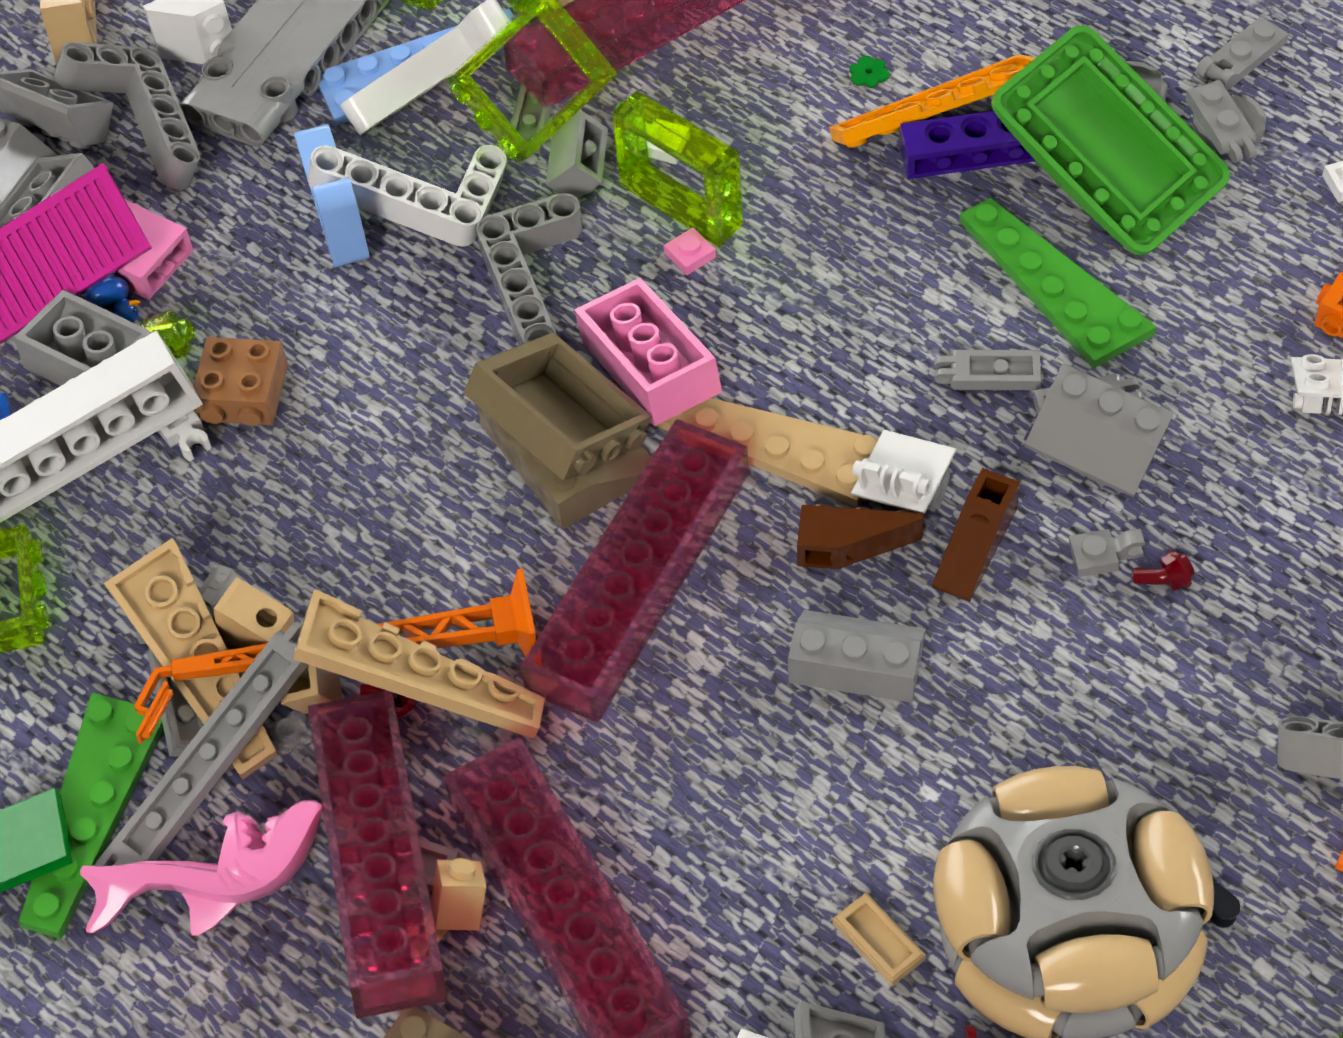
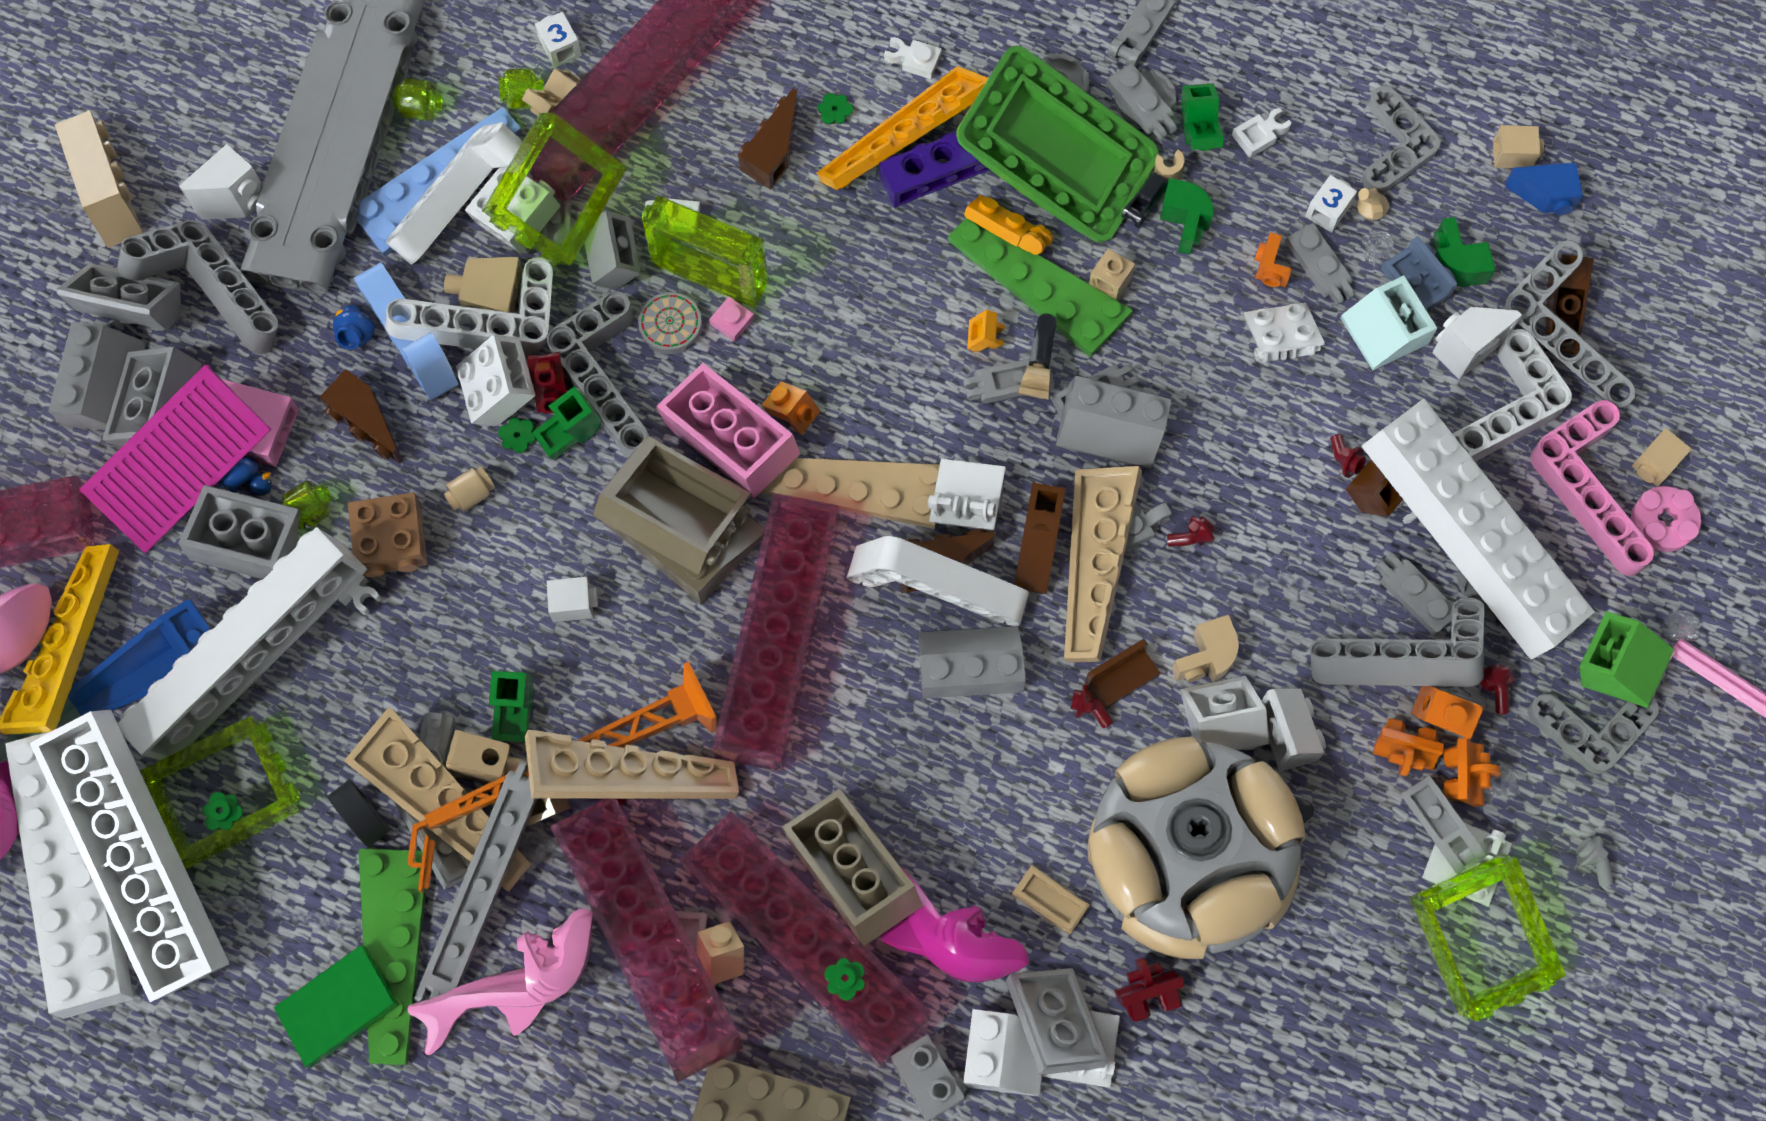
camera: 20 degrees left, 15 degrees up
(103, 649) = (358, 813): none -> black tyre
(253, 255) = (356, 405): none -> reddish brown slope
(276, 181) = (352, 327): none -> blue animal
(315, 563) = (512, 701): none -> green brick
(343, 357) = (468, 489): none -> tan brick
(407, 253) = (495, 380): none -> white brick
(415, 318) = (515, 427): none -> green plant
(416, 488) = (571, 599): none -> white brick
(434, 160) = (487, 283): none -> tan torso
(465, 268) = (547, 379): none -> dark red hips
(478, 313) = (572, 422): none -> green brick
(504, 88) = (531, 203): none -> brick
(594, 962) = (845, 989): none -> green plant
(620, 242) = (670, 322): none -> light grey tile
(643, 831) = (852, 867): none -> dark tan brick
(732, 347) = (792, 406): none -> orange bracket
(732, 936) = (953, 942): none -> dark pink piece
(786, 93) = (770, 149): none -> reddish brown slope
(844, 544) = (901, 561): none -> white beam
(973, 314) = (983, 331): none -> light orange tile
(975, 41) = (916, 59): none -> white plate
(982, 724) = (1084, 702): none -> dark red plate
(1022, 362) = (1037, 374): none -> piece
(1032, 215) = (1008, 225): none -> light orange hinge
(1036, 703) = (1122, 674): none -> reddish brown panel
(1045, 559) = (1099, 538): none -> tan wing
(1140, 283) = (1112, 274): none -> tan brick
(1158, 708) = (1217, 648): none -> tan brick
(1162, 770) = (1226, 714): none -> white slope
(1214, 210) = (1153, 188): none -> black piece
(1233, 807) = (1292, 728): none -> white slope
(1250, 235) = (1189, 206): none -> green brick
(1288, 145) = (1200, 117): none -> green brick

